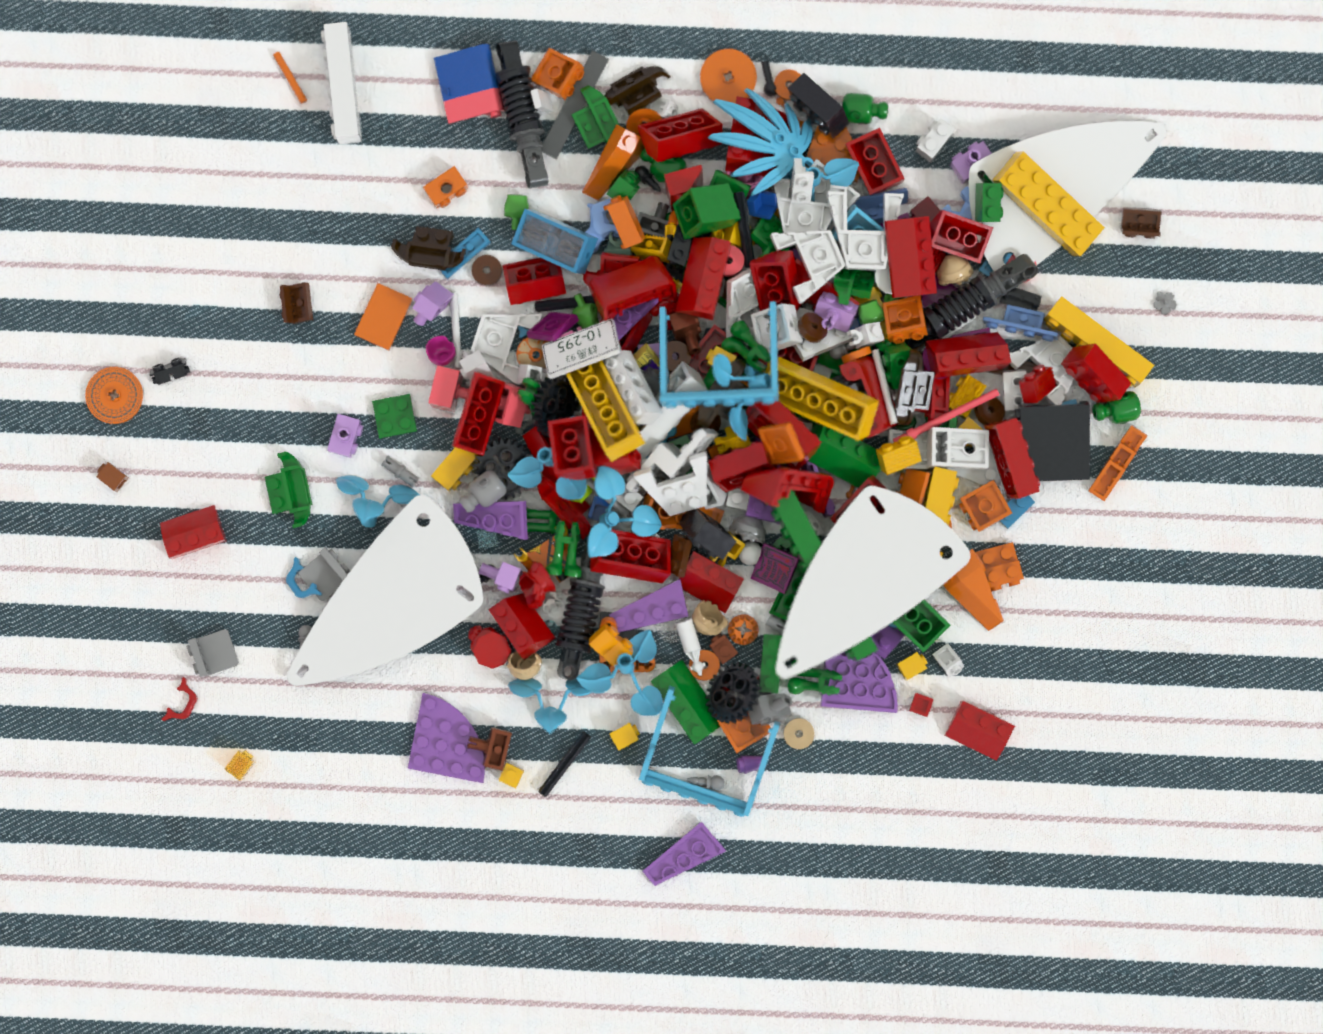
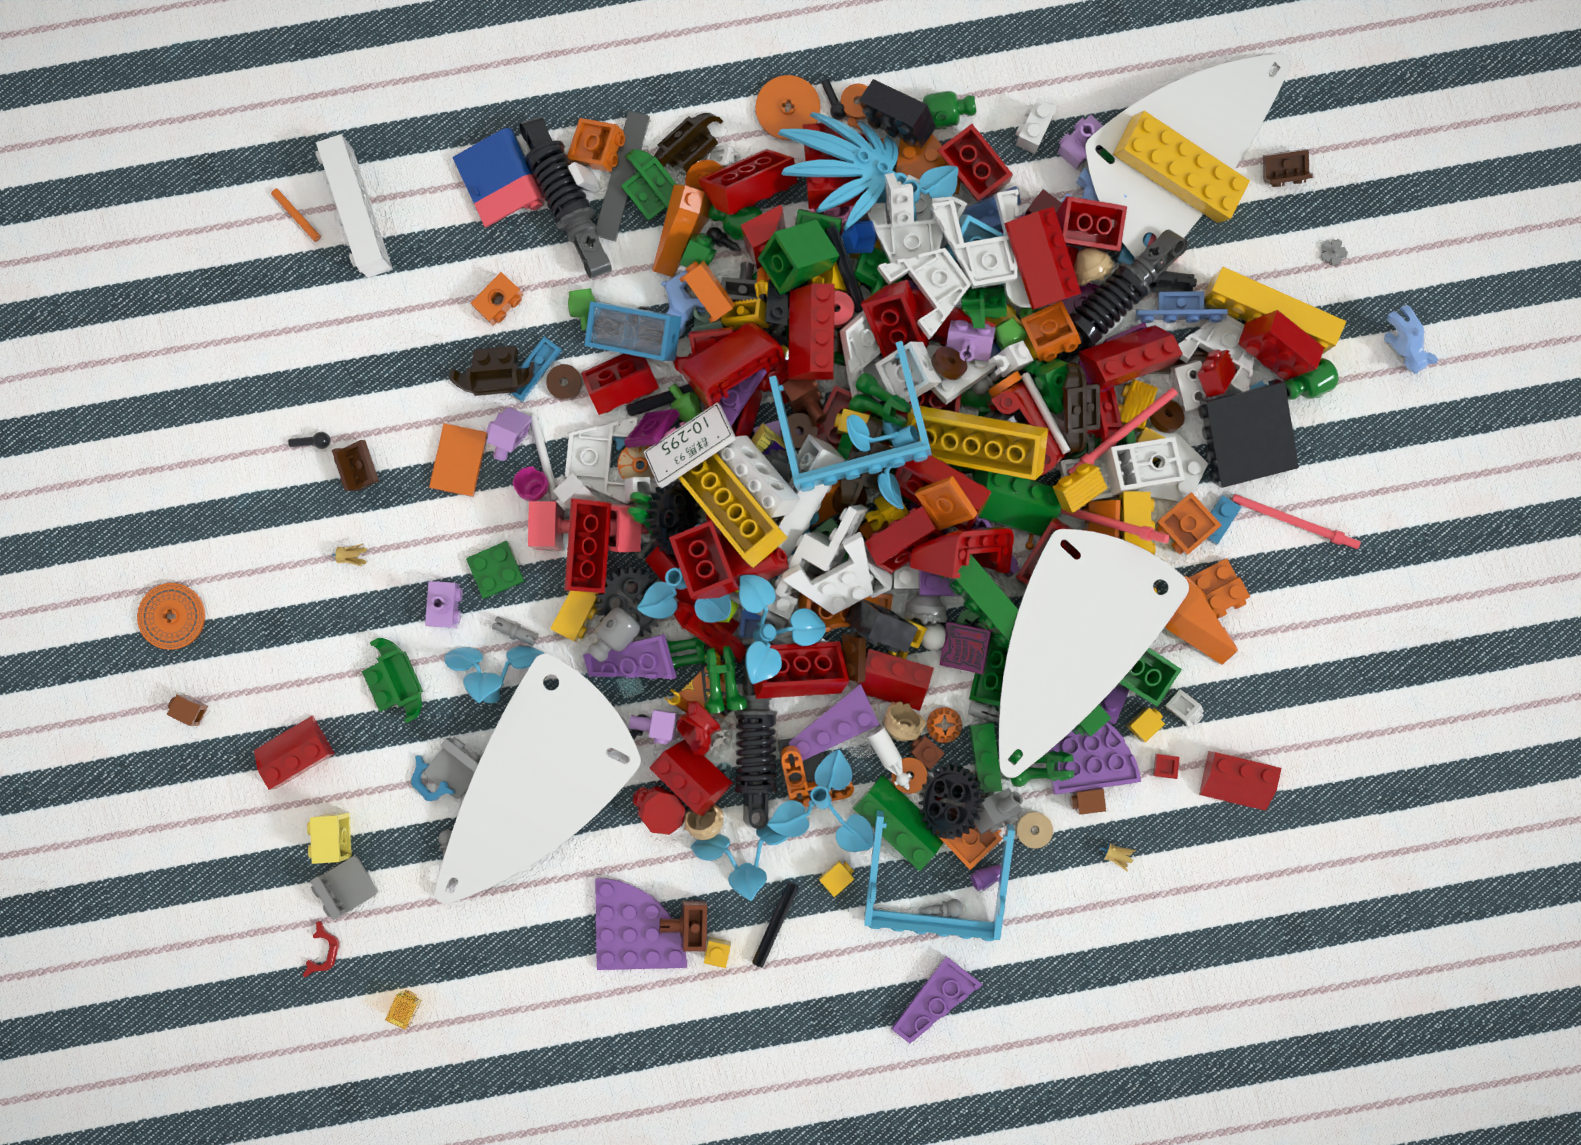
camera: 10 degrees left, 0 degrees up
(176, 367) = (220, 578): black hinge -> none
(210, 608) = (329, 838): none -> light yellow brick
(270, 274) = (320, 440): none -> black bar
(273, 376) = (347, 555): none -> pearl gold piece
(610, 644) = (798, 778): light orange brick -> none
(849, 718) = (1088, 801): none -> dark orange brick
(864, 769) = (1118, 855): none -> pearl gold piece
(941, 503) = (1144, 532): none -> coral bar
(988, 202) = (1116, 178): green brick -> none
(1012, 458) = (1209, 463): red slope -> none
(1110, 544) = (1335, 536): none -> coral bar
(1117, 462) = (1323, 442): orange slope -> none
(1207, 393) = (1410, 340): none -> light blue animal

